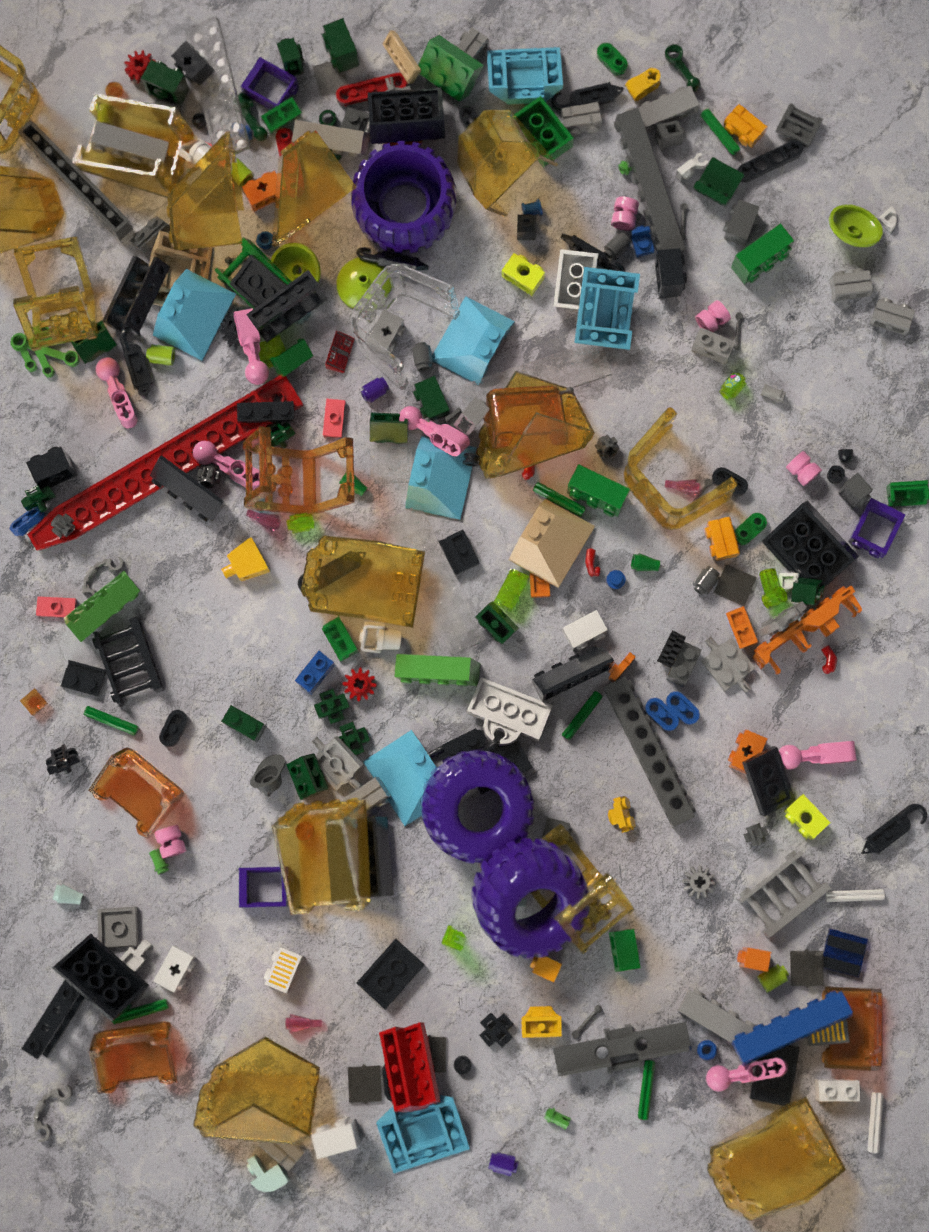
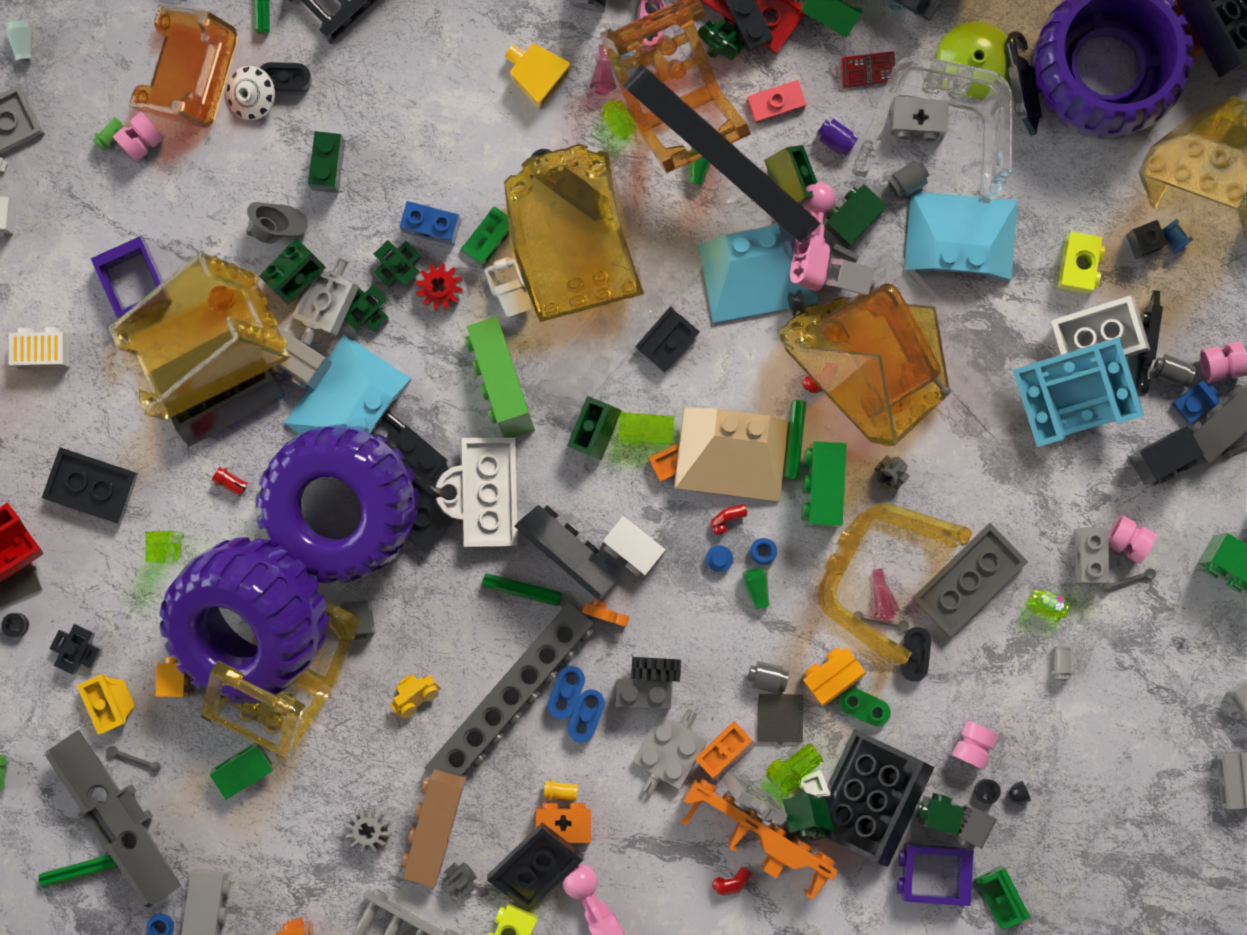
camera: 65 degrees right, 5 degrees up
(174, 746) = (260, 93): none -> white dish
(358, 461) = (721, 153): none -> black beam
(428, 878) = (229, 481): none -> red pin
(625, 544) = (770, 545): none -> blue plate
(697, 428) = (969, 580): none -> dark grey plate
(716, 836) = (433, 828): none -> medium nougat brick
(724, 745) = (560, 790): none -> yellow pin
(839, 508) = (940, 813): none -> dark green brick

